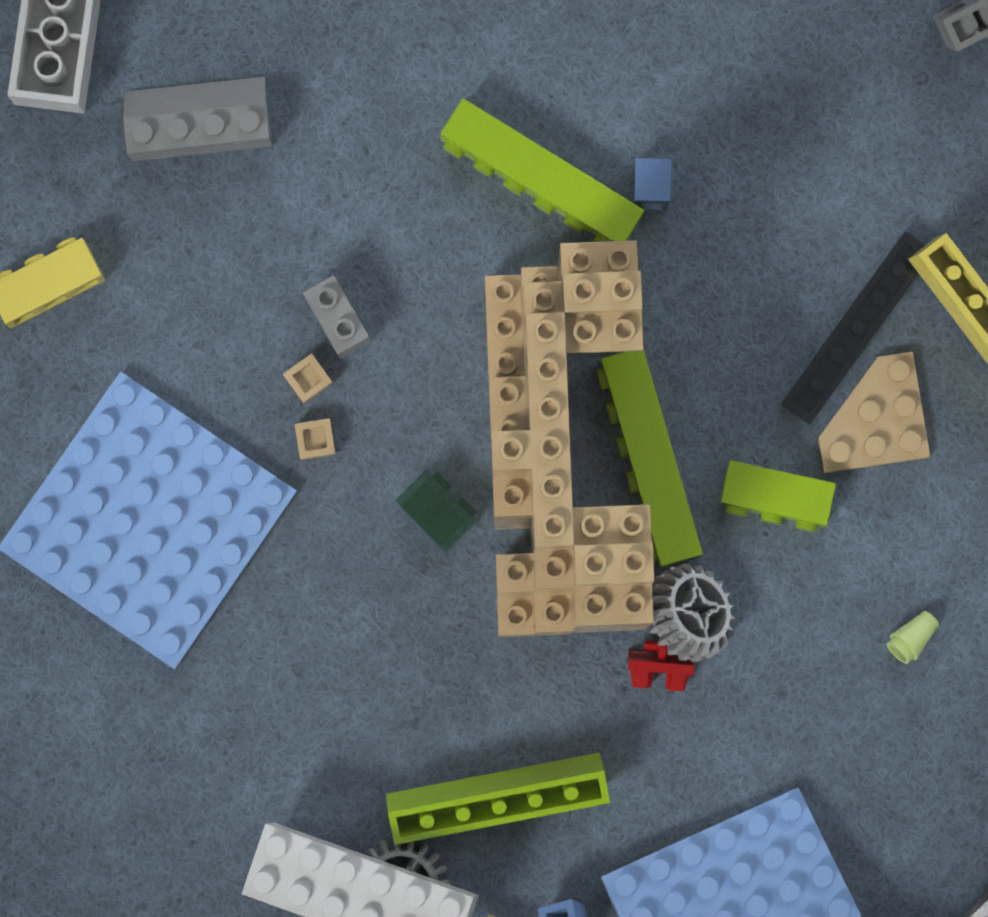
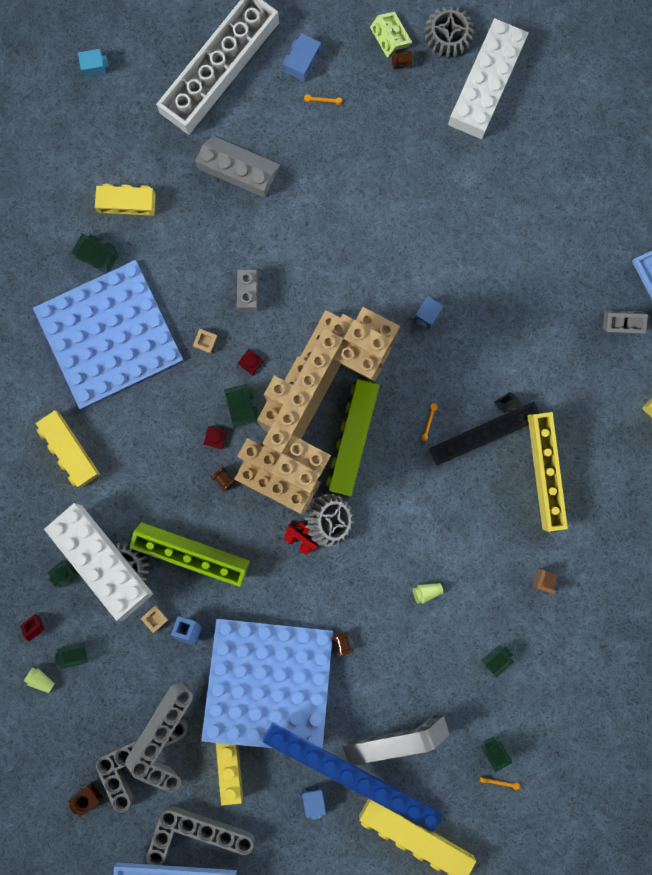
camera: 30 degrees right, 0 degrees up
(48, 398) = (95, 253): none -> clear green brick
(195, 745) = (68, 449): none -> light yellow brick
(307, 378) = (218, 311): tan plate -> none
(408, 431) = (250, 362): none -> dark red plate
(424, 587) = (215, 437): none -> dark red plate
(478, 646) = (223, 479): none -> reddish brown bush
(539, 174) = (380, 280): lime brick -> none
(749, 333) = (433, 407): none -> light orange hinge
(776, 496) = (402, 489): lime brick -> none
(826, 799) = (342, 644): none -> reddish brown bush
(864, 257) = (507, 403): none -> black plate
(878, 420) = (470, 482): tan plate -> none

